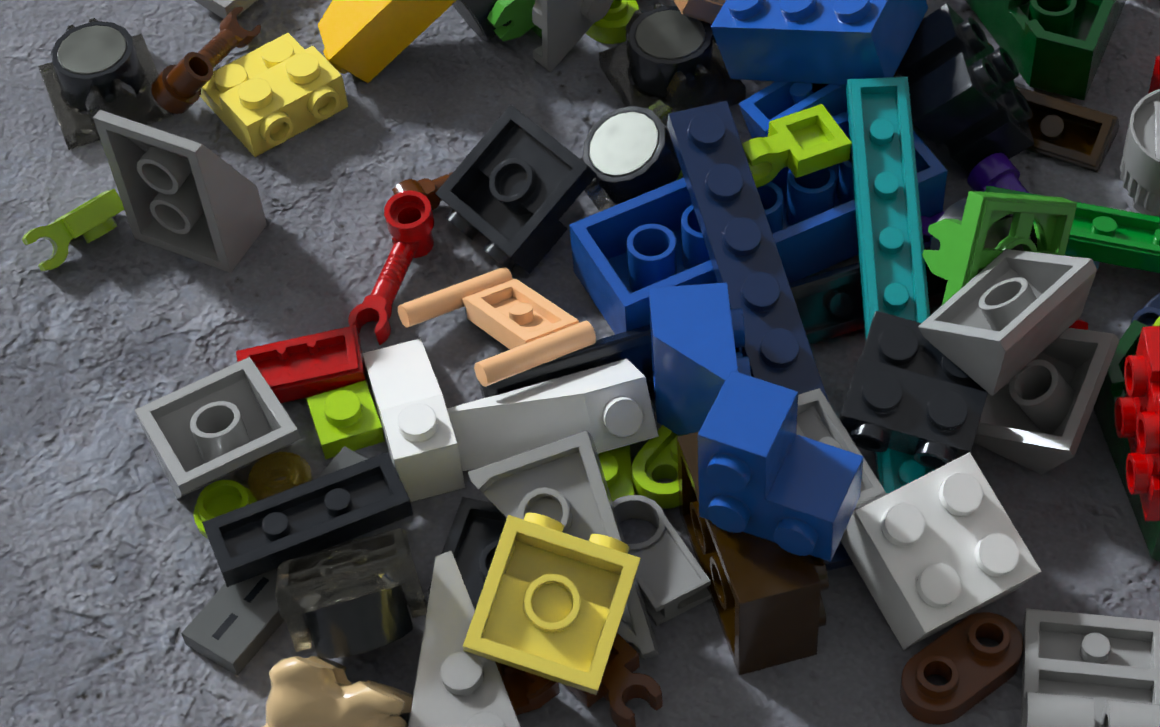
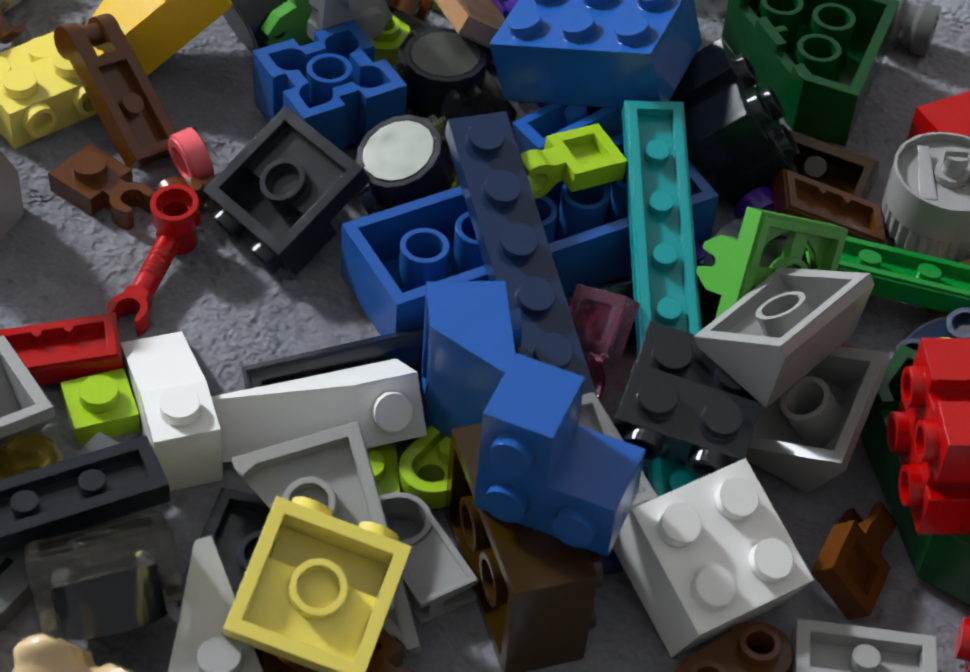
camera: 10 degrees left, 5 degrees down
(337, 187) = (98, 182): none -> reddish brown plate
(351, 94) = (117, 88): none -> reddish brown plate
(422, 155) = (189, 154): none -> coral tile
(512, 315) = (275, 309): light nougat plate -> none
(557, 75) = (329, 83): none -> blue brick
(829, 319) = (603, 327): none -> clear pink plate
(1063, 173) = (820, 202): none -> reddish brown plate
(1083, 545) = (852, 561): none -> reddish brown plate

